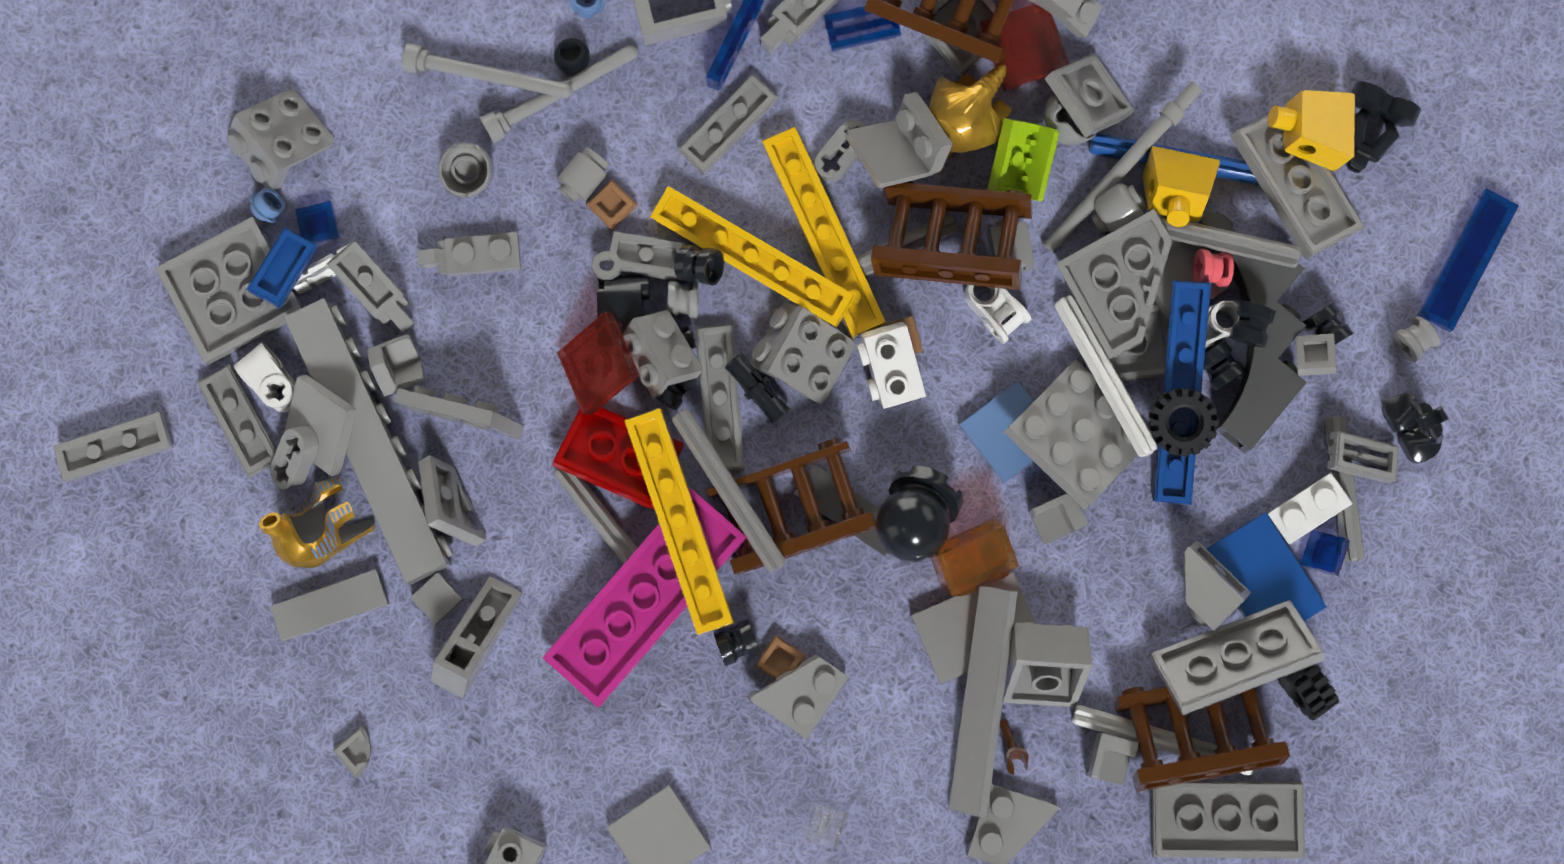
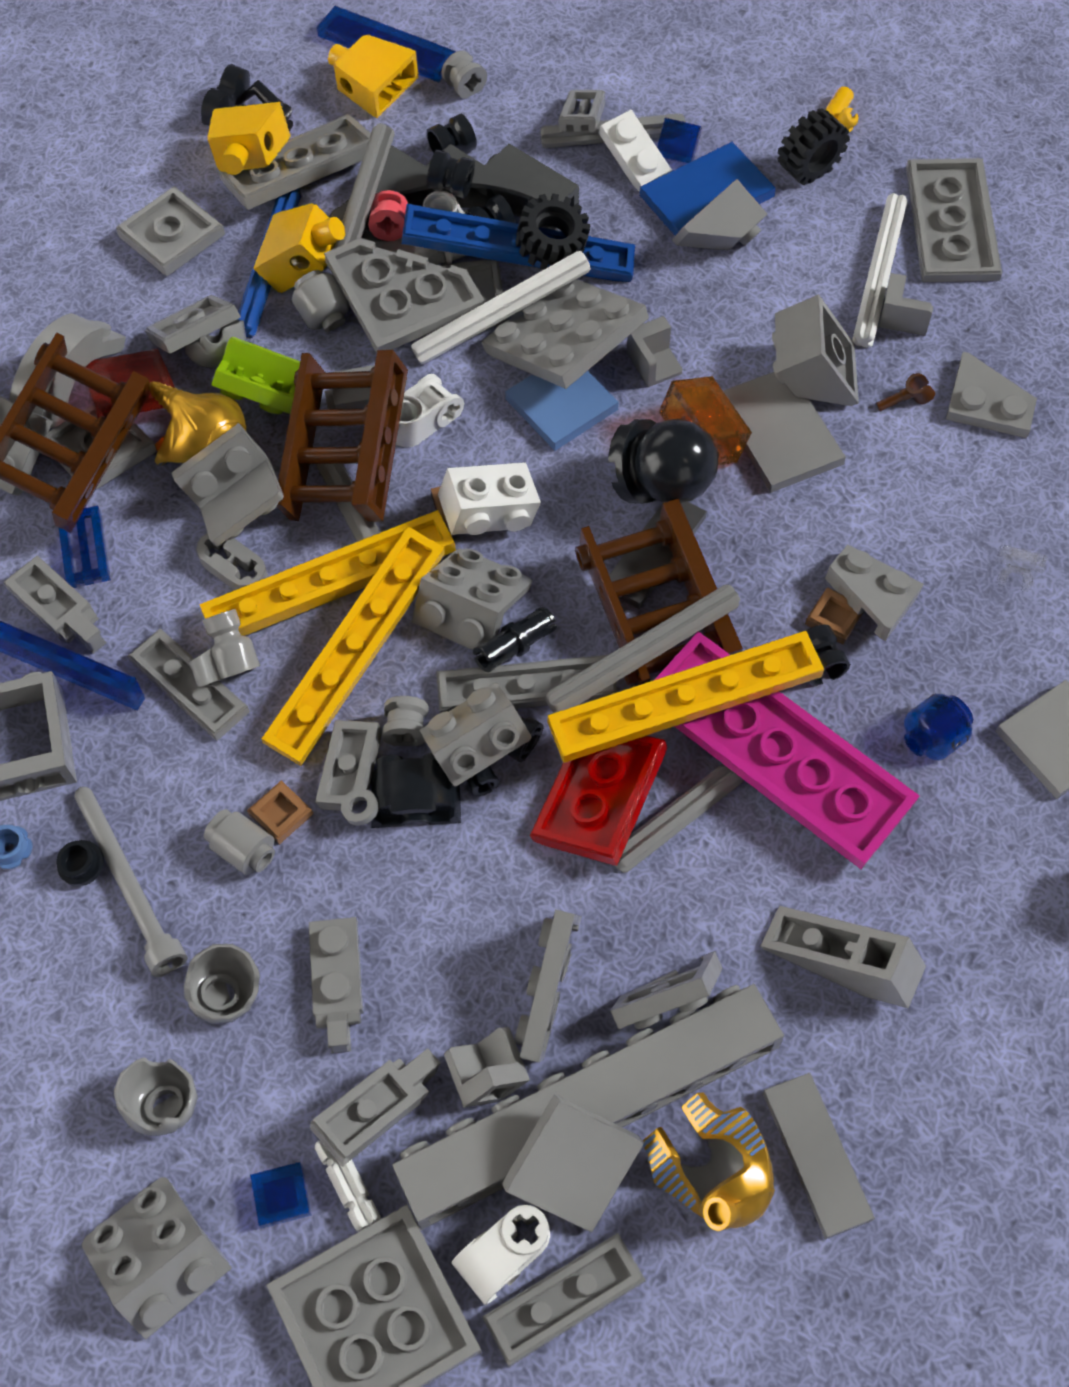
camera: 90 degrees left, 20 degrees down
(267, 205) = (250, 1267): medium blue plate -> none
(282, 268) = (345, 1232): blue tile -> none
(294, 457) = (610, 1211): light grey beam -> none
(355, 751) = (1010, 1112): light grey tile -> none
(372, 132) = (141, 1087): none -> light grey hair
(419, 59) = (61, 1056): light grey piece -> none
(437, 598) = (797, 1010): light grey tile -> none
(598, 363) = (487, 806): clear red tile -> none
(668, 733) = (938, 726): none -> clear blue head
(698, 264) = (363, 706): black wheel -> none
(743, 156) = (229, 654): none -> light grey piece
(983, 700) = (862, 408): light grey tile -> none
(1169, 115) = (223, 253): light grey bar -> none
(1190, 765) = (907, 230): reddish brown fence -> none
(1214, 63) = (170, 231): none -> light grey plate
(1237, 657) = (797, 192): light grey tile -> none
(1316, 354) = (481, 132): light grey plate -> none
(1370, 718) = (839, 108): none -> yellow arm
(1418, 247) = (373, 72): none -> yellow torso
(1419, 425) = (565, 74): black piece -> none

